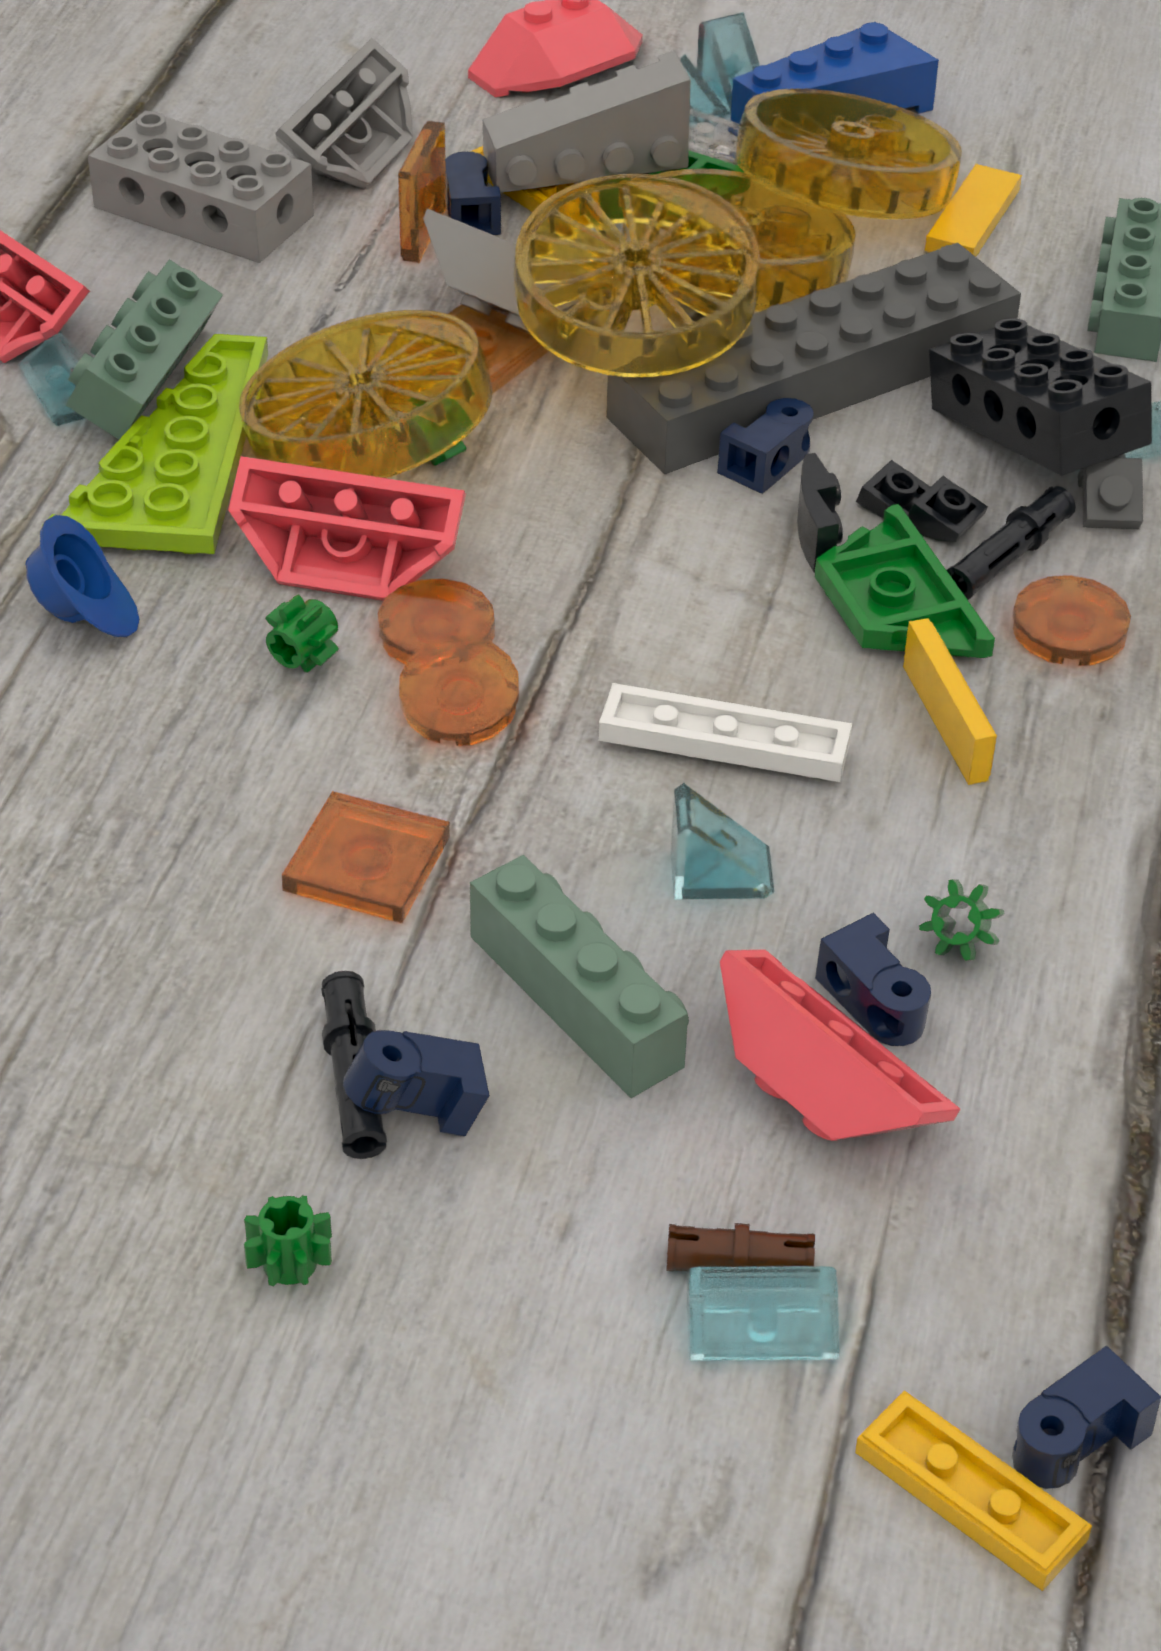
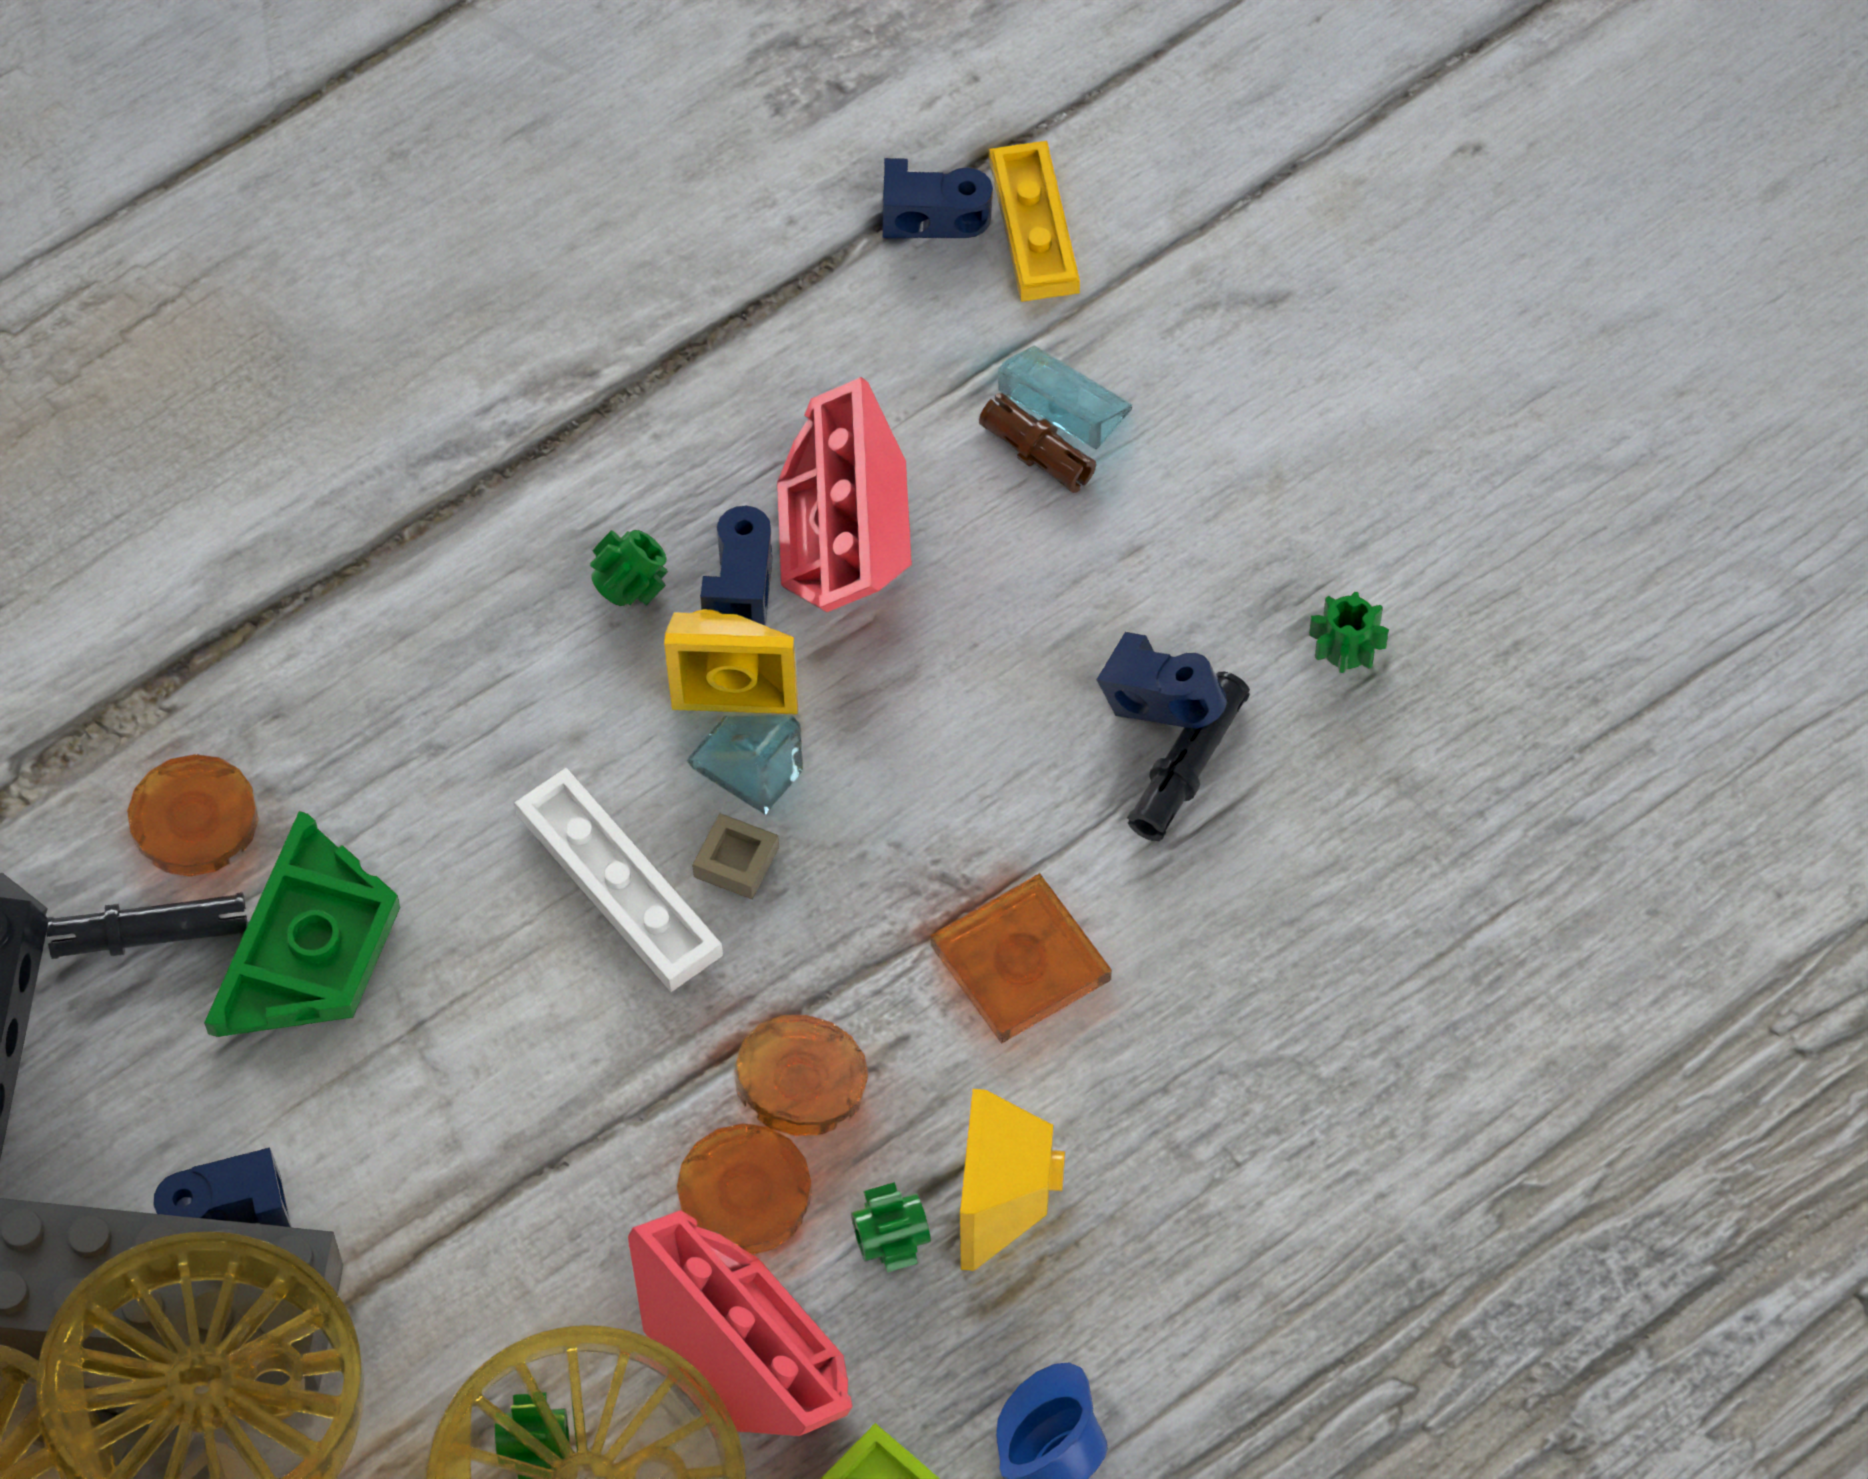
camera: 140 degrees left, 15 degrees up
(244, 682) = (1005, 1176): none -> yellow slope
(579, 975) = (963, 710): sand green brick -> none
(649, 789) = (735, 856): none -> dark tan plate
(797, 879) = (729, 664): none -> yellow slope
(817, 520) = (279, 1082): black slope -> none
(936, 511) = (164, 1036): black slope -> none
(949, 701) = (405, 780): yellow tile -> none

